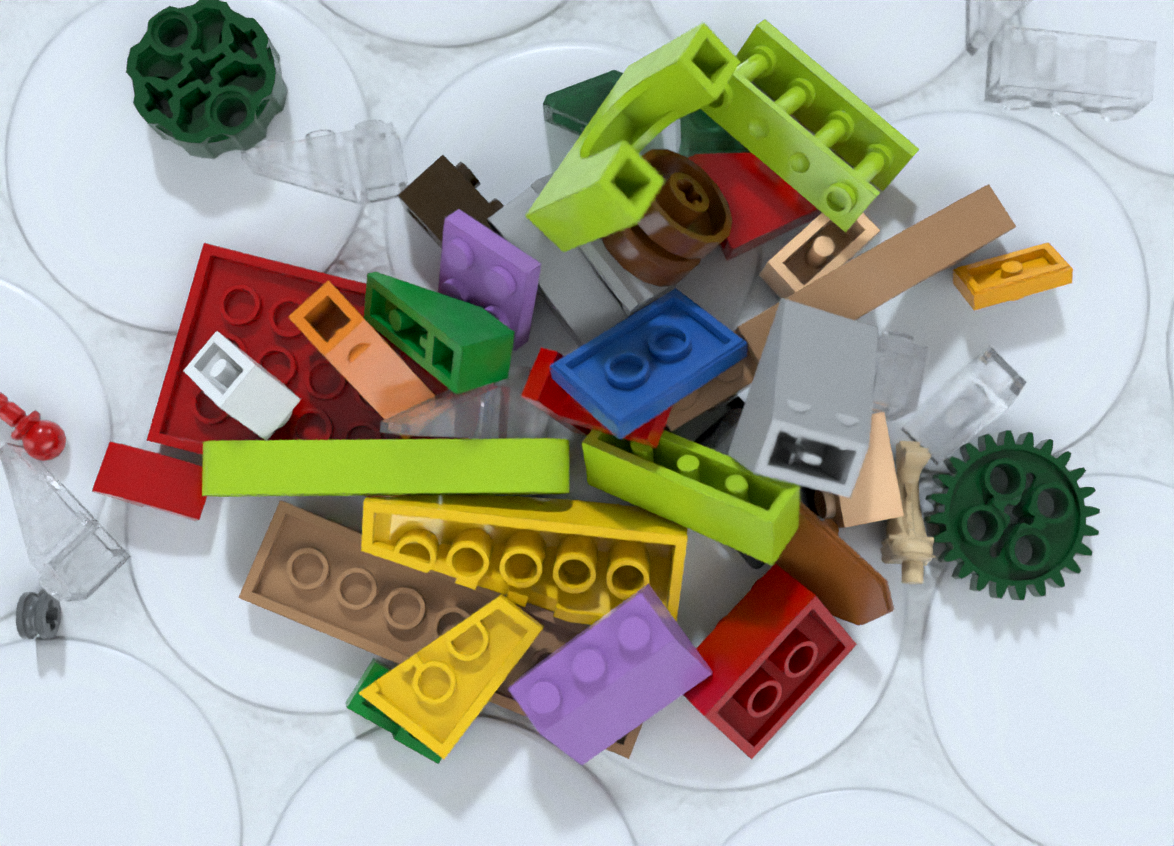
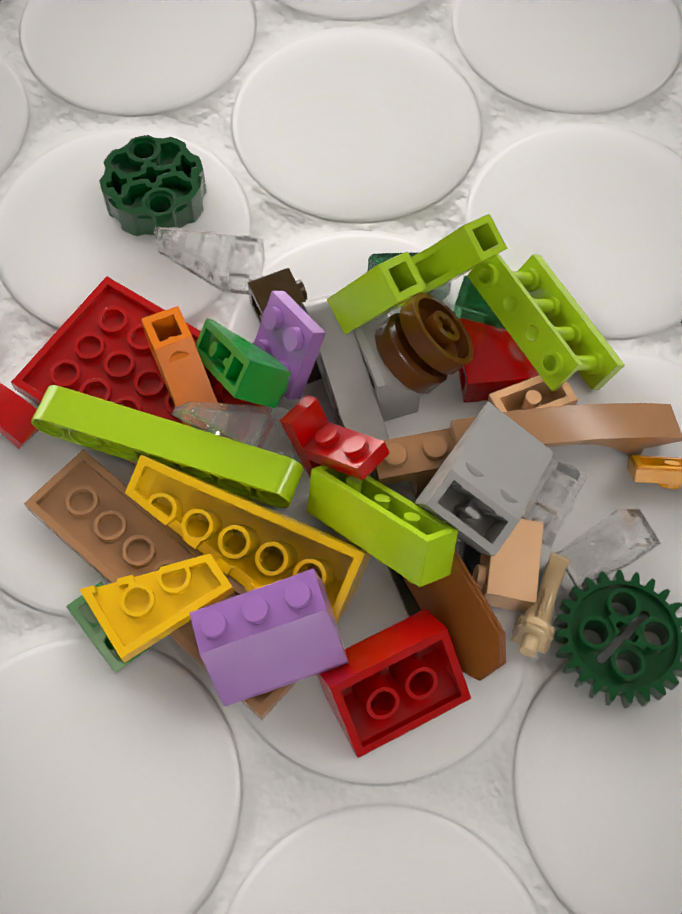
camera: 20 degrees right, 20 degrees down
(242, 386) = (92, 363): white slope -> none
(648, 362) = (378, 422): blue tile -> none

